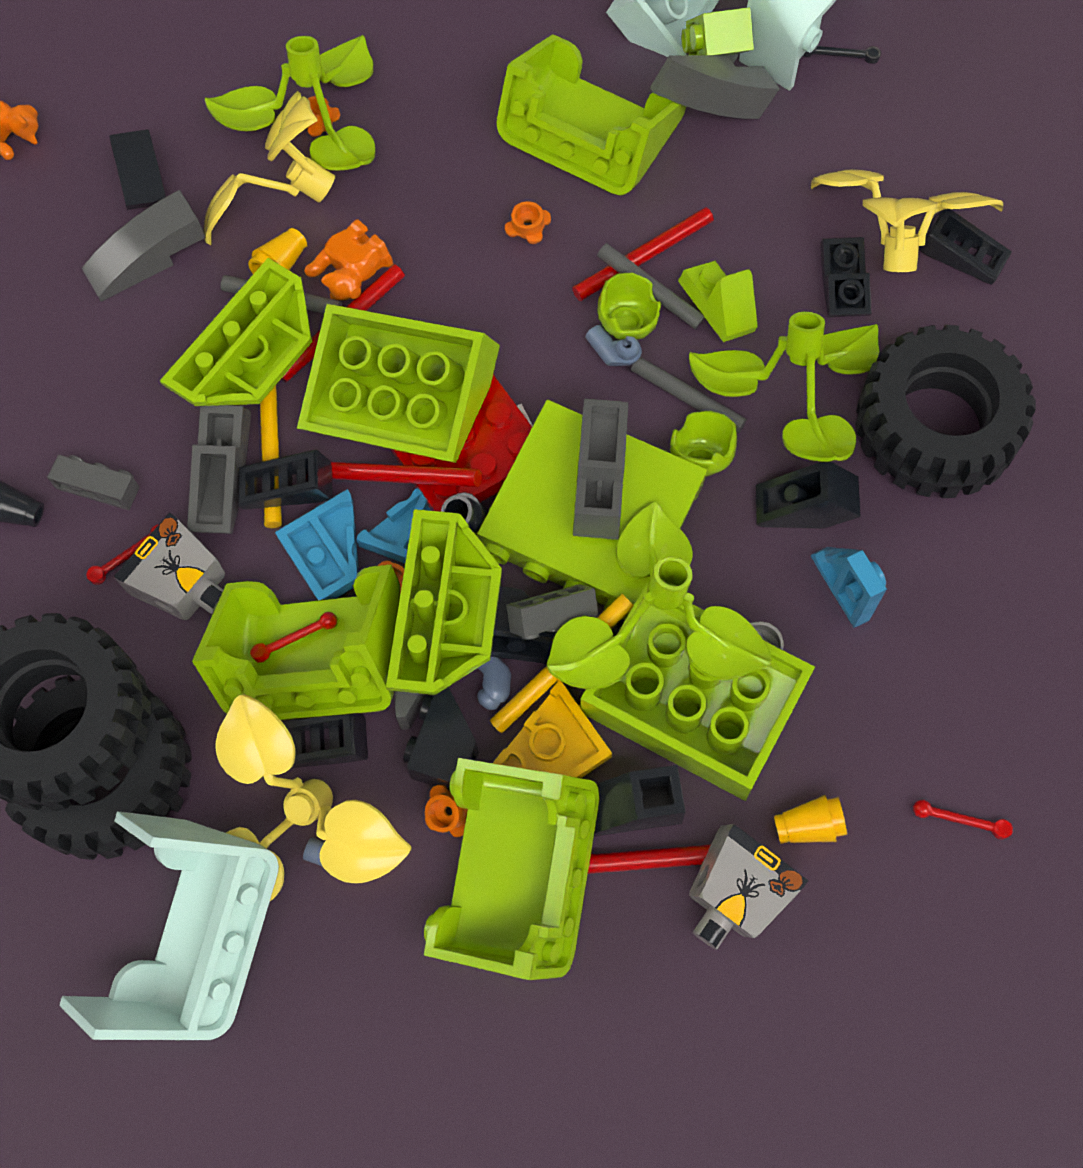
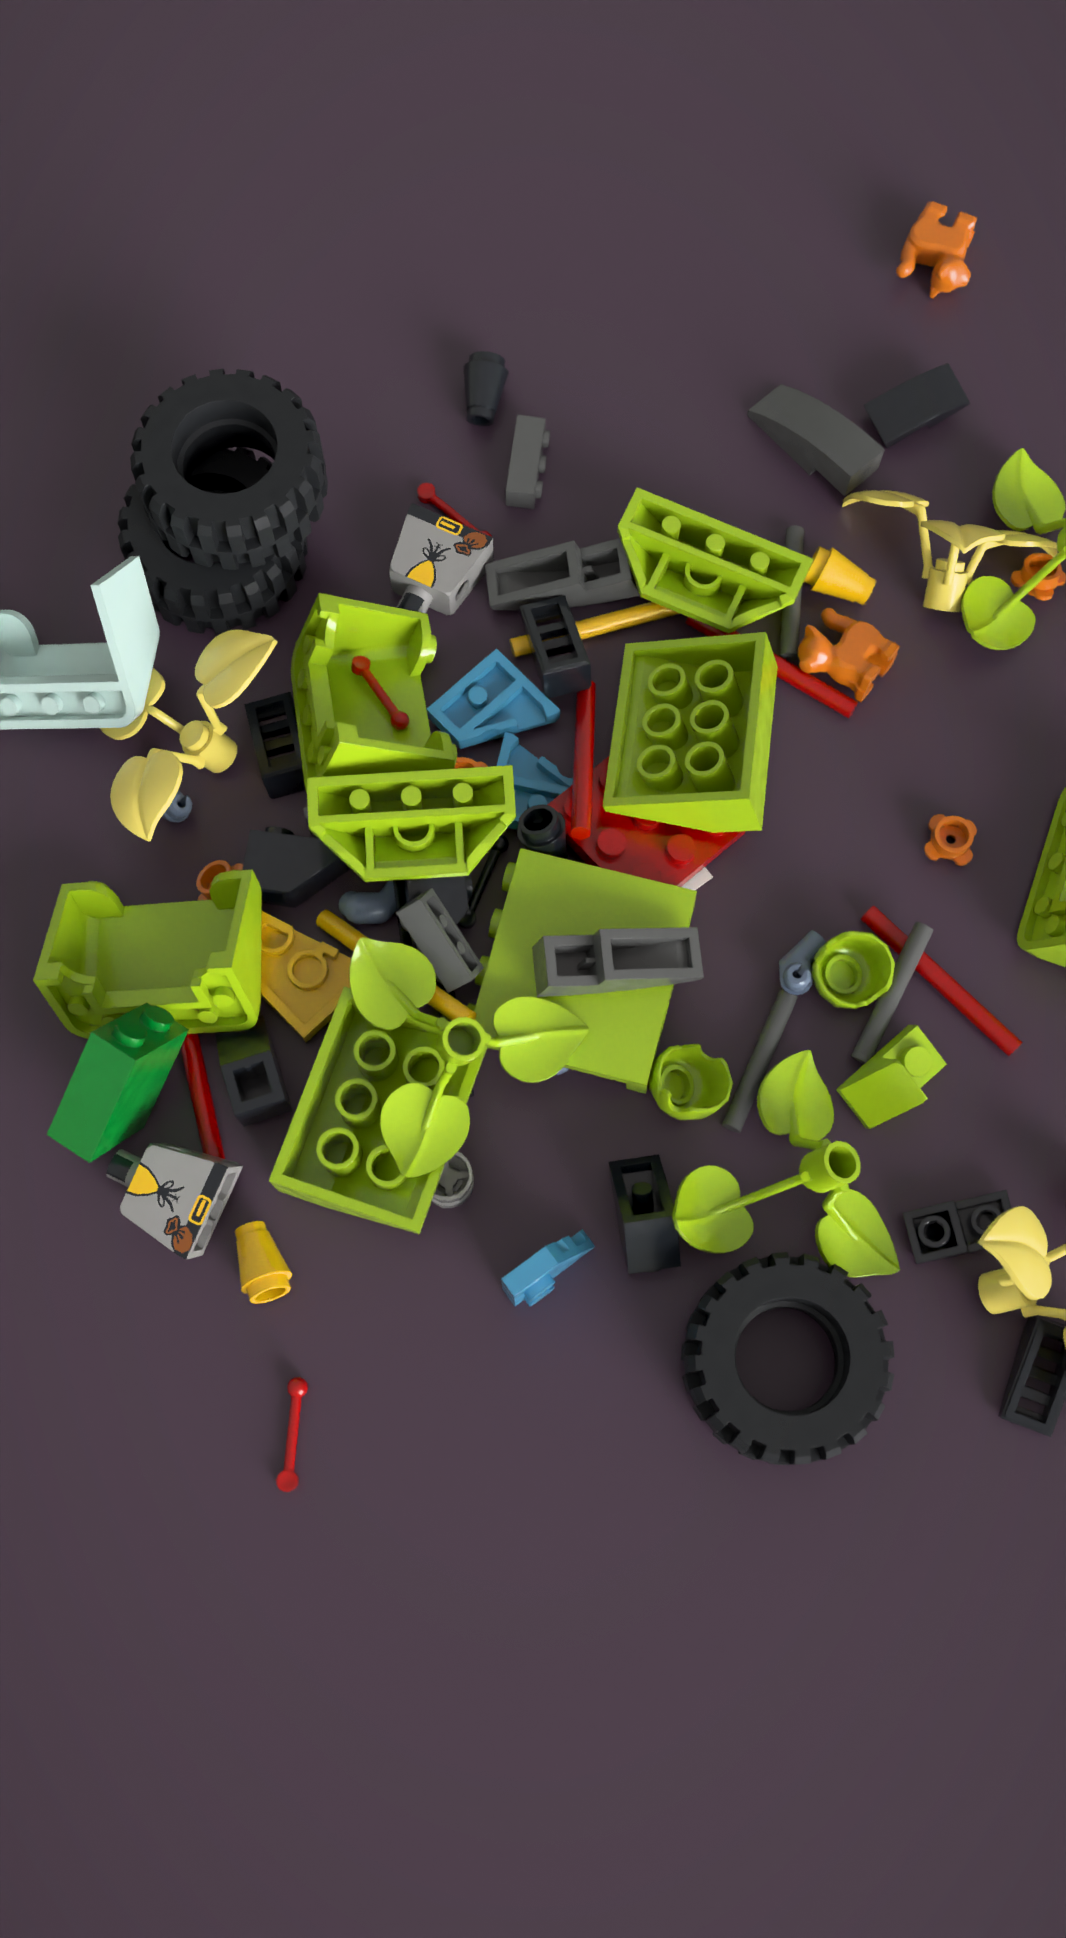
camera: 75 degrees right, 5 degrees up
(640, 913) = (117, 1081): none -> green brick

